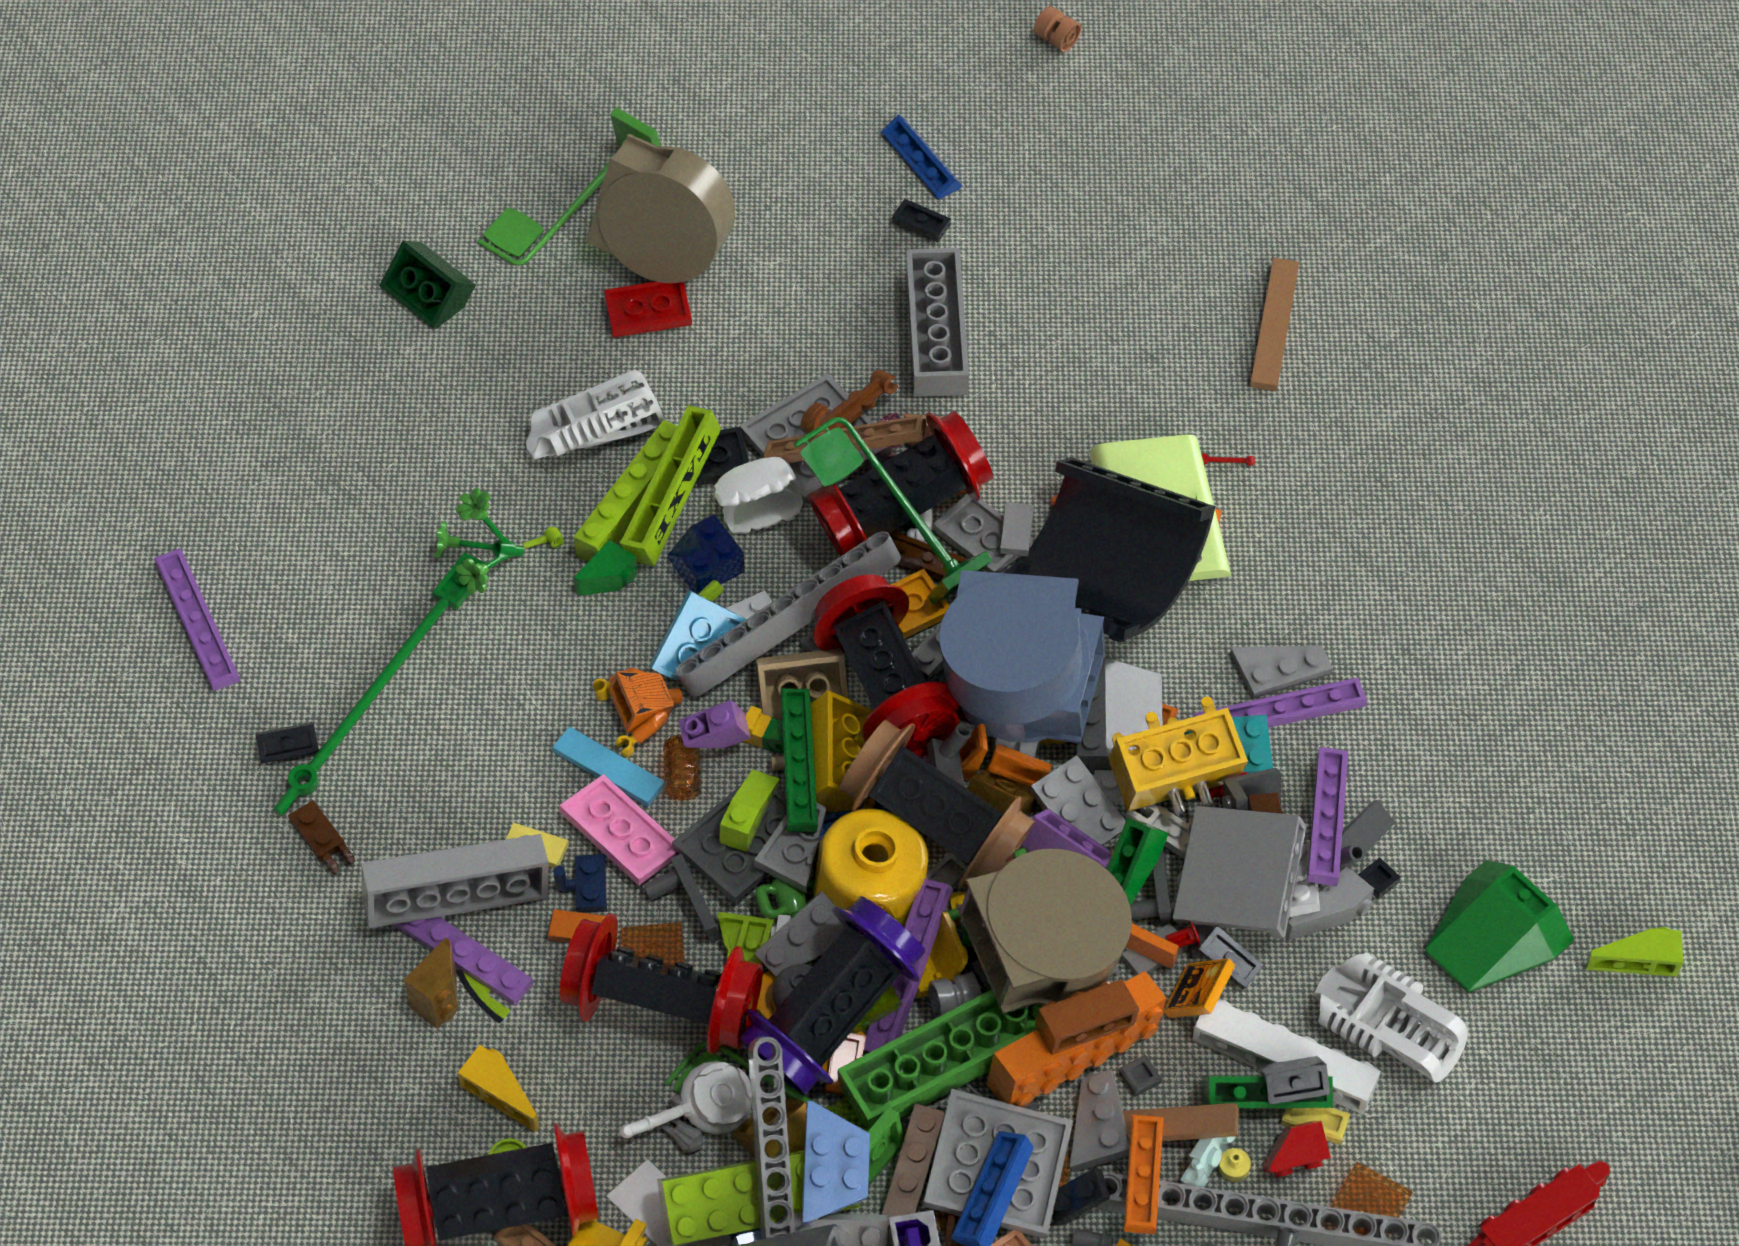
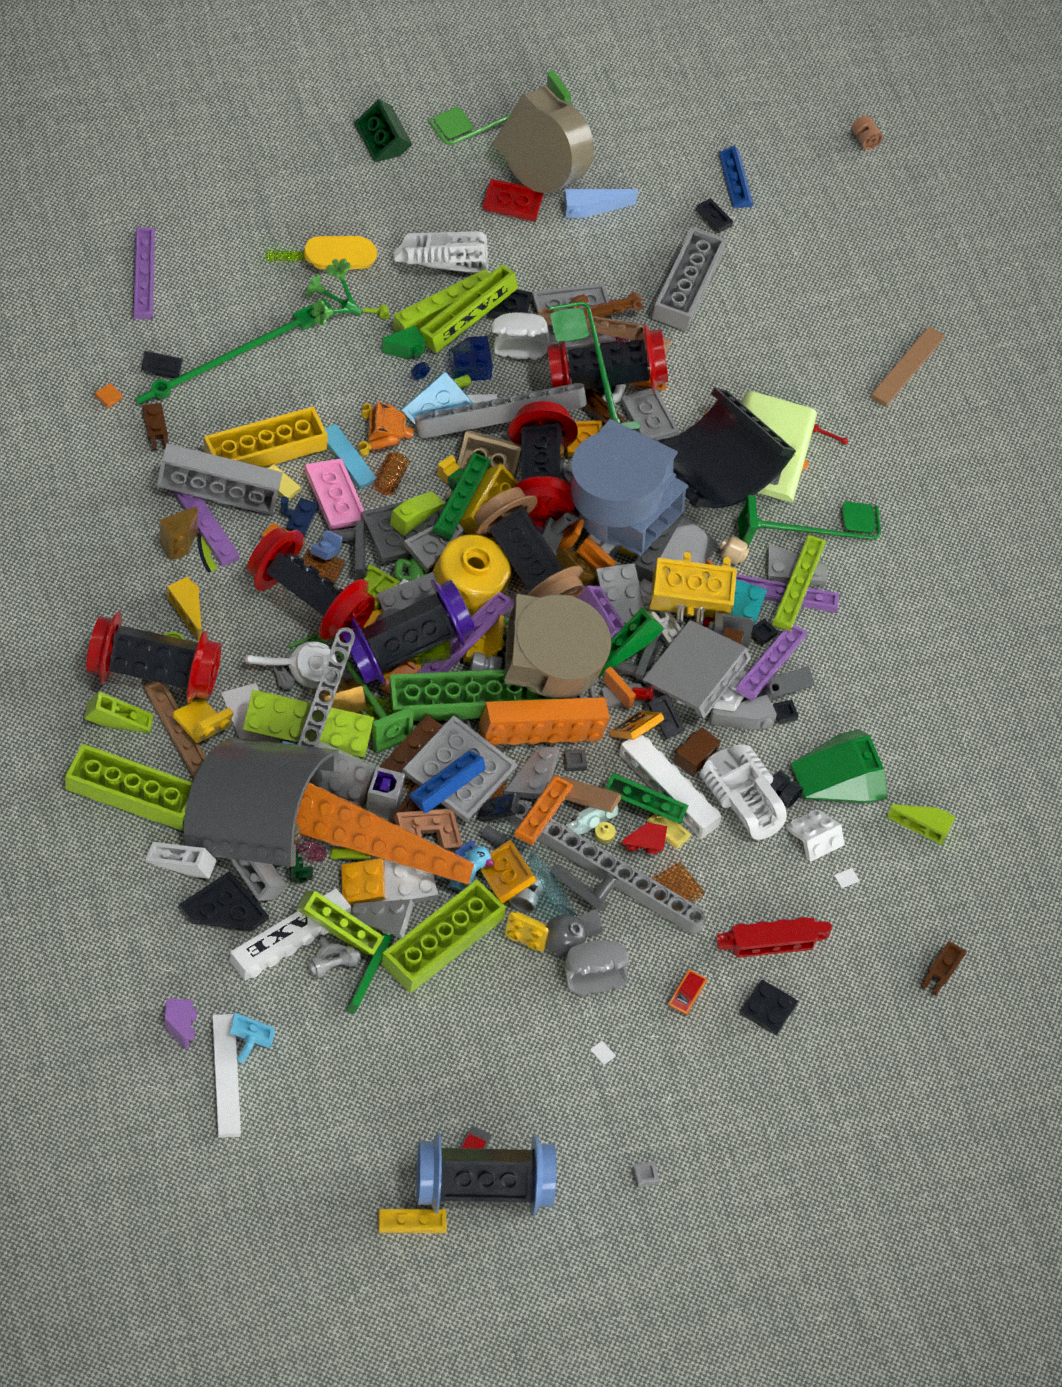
camera: 15 degrees right, 0 degrees up
(233, 820) = (108, 395): none -> orange tile
(391, 508) = (274, 255): none -> clear neon green piece
(444, 479) = (355, 249): none -> yellow tile
(492, 791) = (271, 439): none -> yellow brick
(646, 600) = (420, 370): none -> clear blue tile
(649, 912) = (328, 547): none -> medium blue bracket
(715, 727) = (421, 457): medium lavender slope -> none
(751, 268) = (589, 202): none -> light blue slope
(833, 1164) = (358, 723): medium blue wing -> none
(1017, 529) = (671, 420): light grey tile -> none
(1086, 1016) = (552, 704): dark orange brick -> none
(1192, 677) = (734, 549): none -> tan head
(1292, 775) = (763, 632): none -> black plate
(1295, 989) = (696, 751): none -> reddish brown brick
(1295, 1079) = (663, 797): panel -> none
(1302, 687) = (799, 583): none -> lime tile
(1321, 558) = (856, 517): none -> green piece
(1440, 990) = (787, 790): none -> black wheel
(1512, 1033) = (818, 833): none -> white bracket
(1582, 1081) = (847, 878): none -> white sticker

